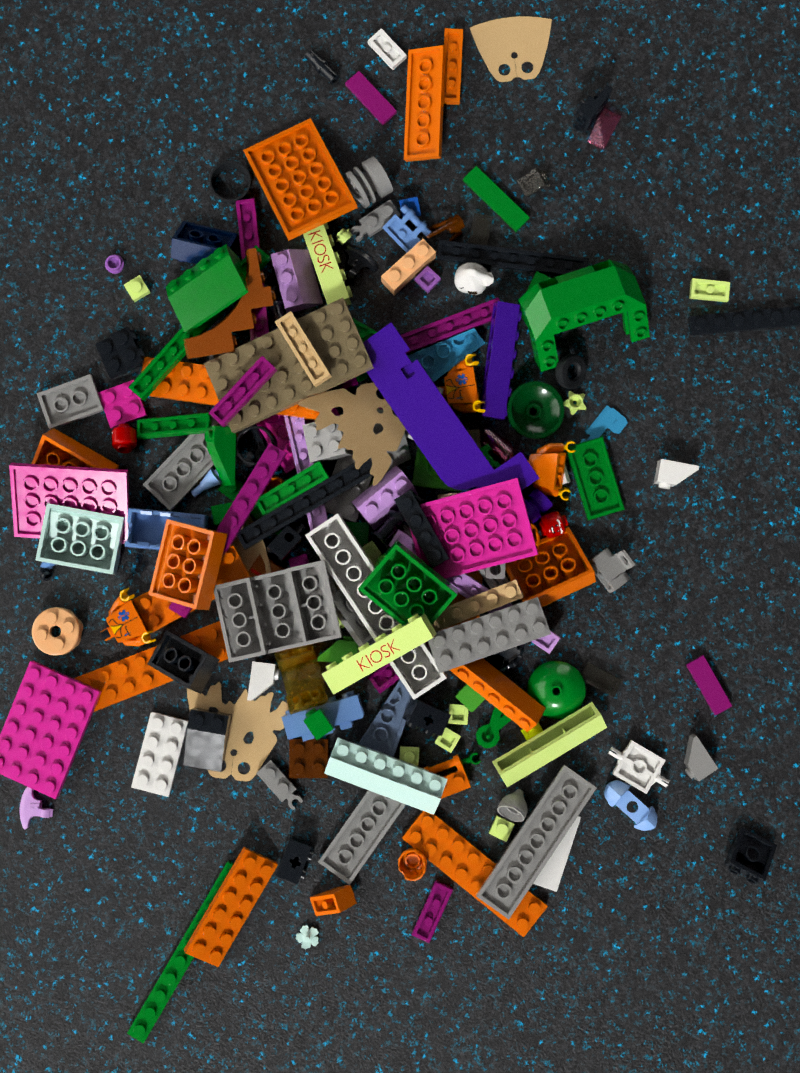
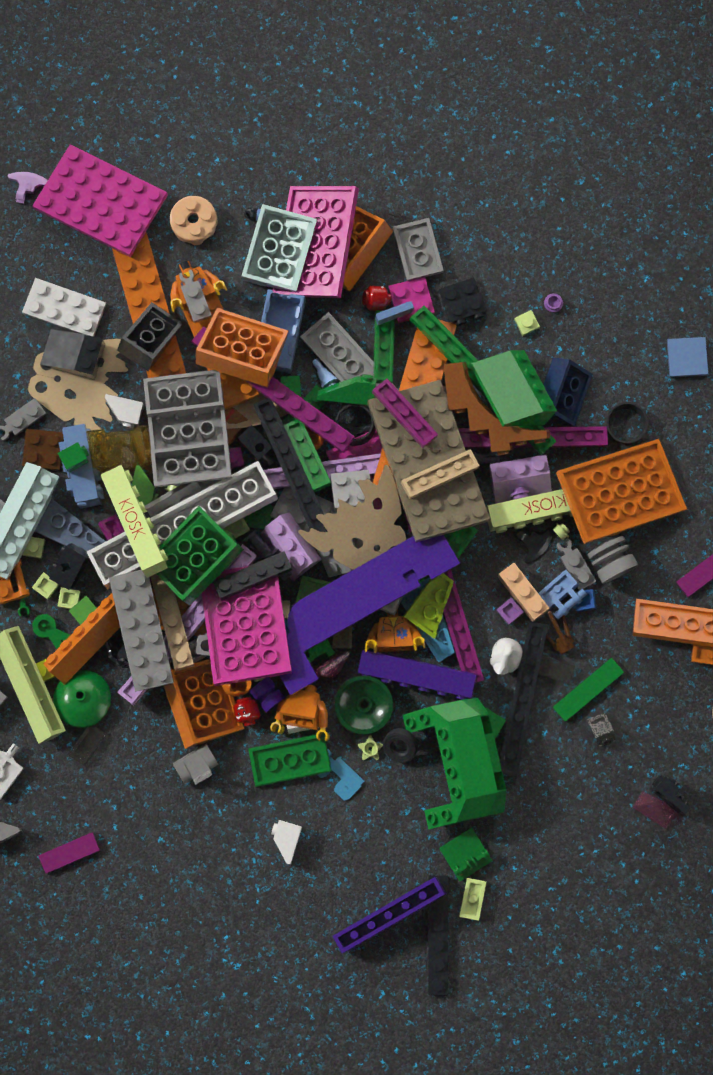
camera: 95 degrees right, 5 degrees down
(138, 416) = (394, 313): none -> medium blue tile
(139, 619) = (195, 298): none -> light grey plate
(158, 130) = (687, 357): none -> medium blue tile
(312, 277) = (519, 492): none -> medium lavender plate
(432, 355) = (429, 605): none -> lime wing
(667, 301) = (465, 854): none -> green hinge
(737, 365) = (389, 915): none -> dark purple brick

